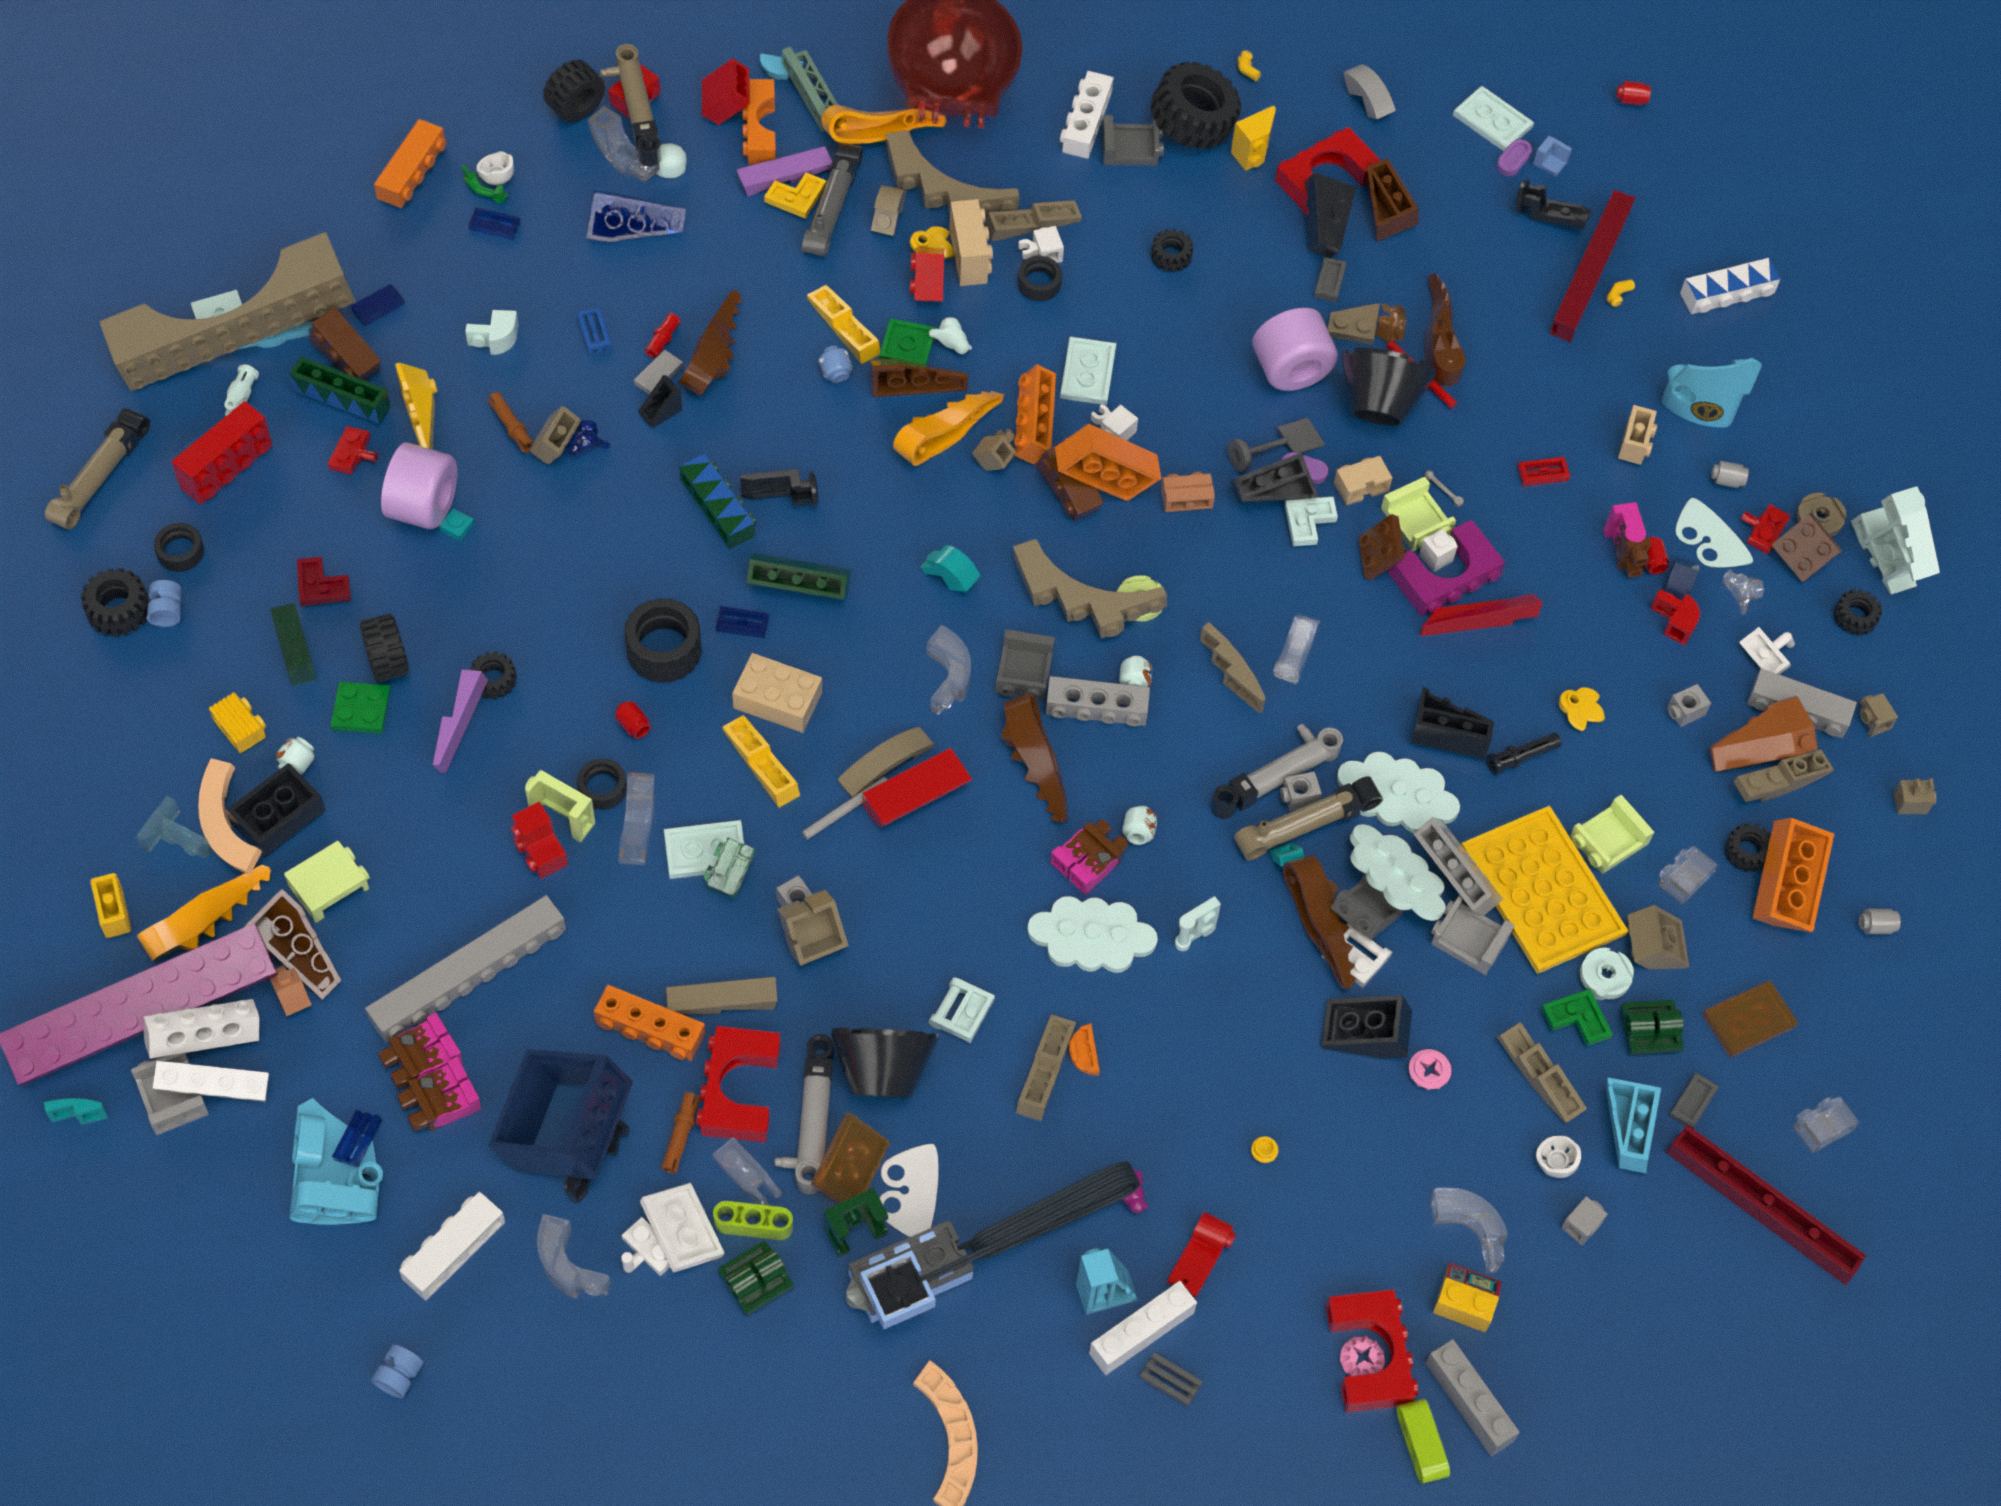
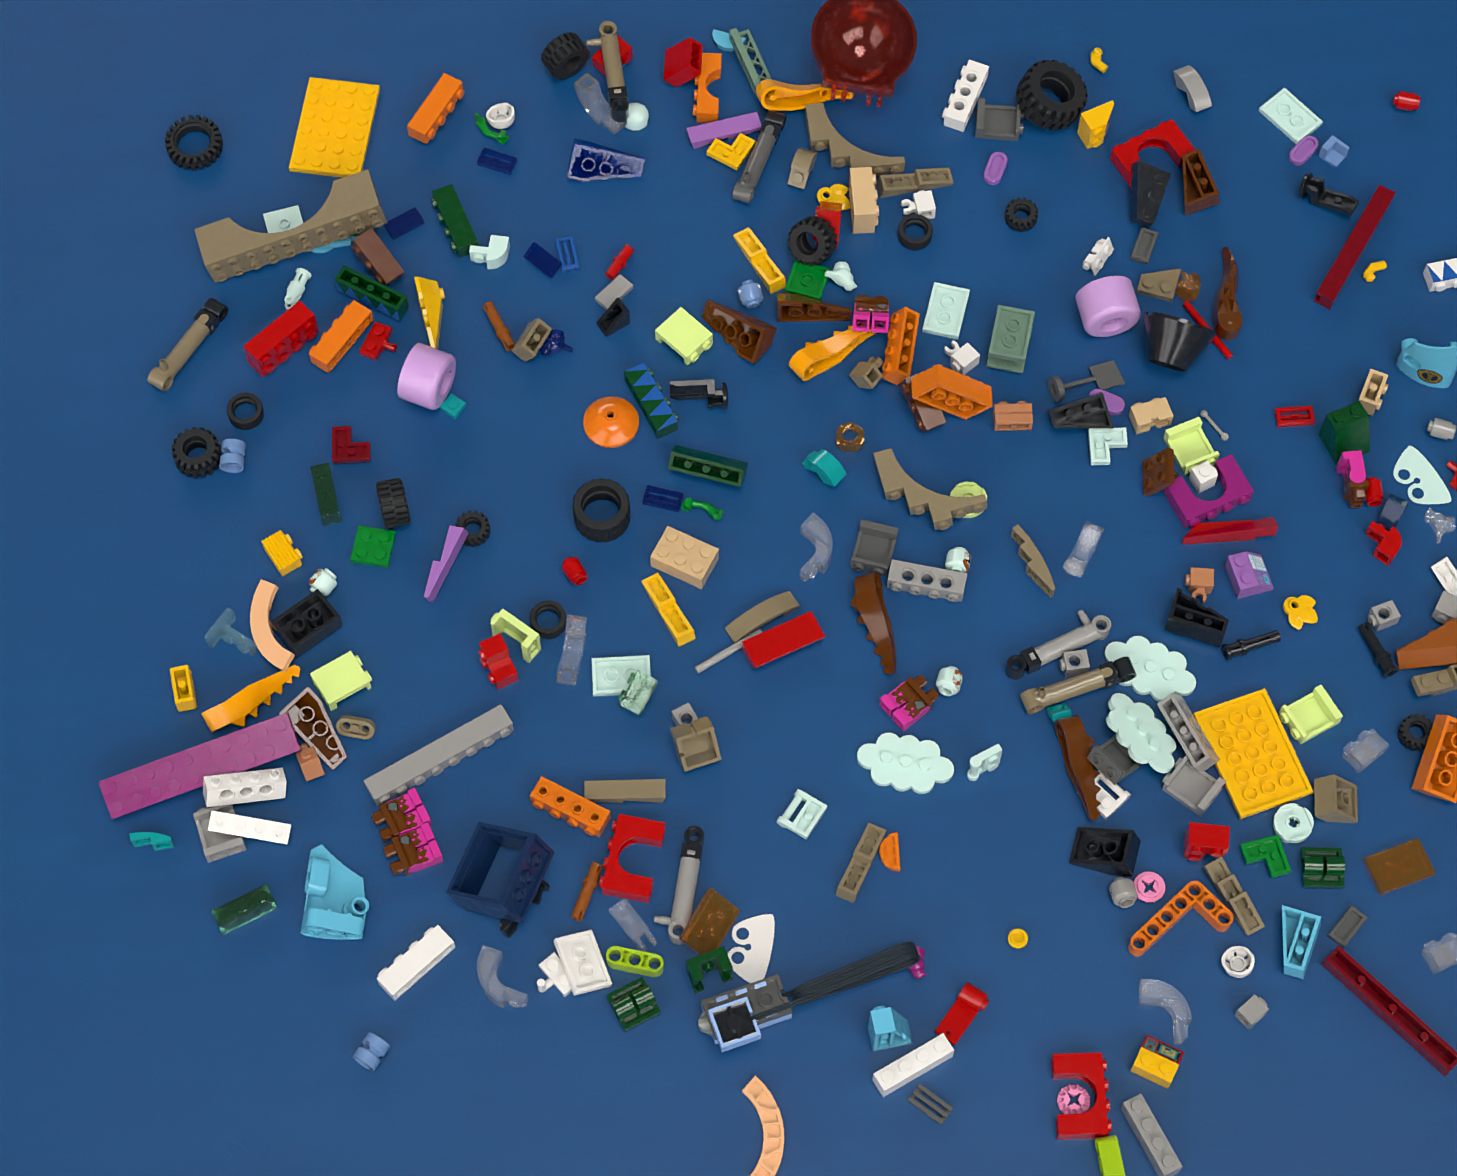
camera: 10 degrees right, 5 degrees up
(87, 201) = (200, 159): none -> black tyre
(209, 1192) = (244, 909): none -> clear green brick
(278, 193) = (334, 127): none -> yellow plate
(302, 446) = (340, 336): none -> orange brick
(352, 942) = (356, 727): none -> dark tan plate
(353, 1137) = (349, 876): clear blue tile -> none
(443, 295) = (454, 219): none -> dark green brick
(562, 338) = (543, 259): none -> clear blue tile
(670, 541) = (611, 431): none -> orange dish
(712, 348) = (656, 276): reddish brown animal -> none
(755, 418) = (684, 335): none -> yellowish green panel
(777, 625) = (711, 510): none -> green piece
(832, 412) = (743, 332): none -> reddish brown wedge
(883, 1059) = (739, 850): black cone -> none
(894, 299) = (824, 235): none -> black tyre
(979, 540) = (852, 445): none -> clear orange piece
(997, 372) = (871, 308): none -> hips
(1133, 198) = (995, 168): none -> medium lavender tile
(1175, 397) = (1010, 339): none -> sand green torso
(1278, 288) = (1102, 250): none -> white hinge
(1397, 1078) = (1123, 892): none -> light grey head
(1450, 679) = (1200, 582): none -> nougat brick
(1468, 1101) = (1175, 914): none -> orange beam
(1497, 1000) = (1205, 839): none -> red brick
(1508, 666) = (1248, 574): none -> medium lavender slope
(1611, 480) = (1346, 431): none -> dark green slope
(1692, 757) = (1382, 657): none -> black pin

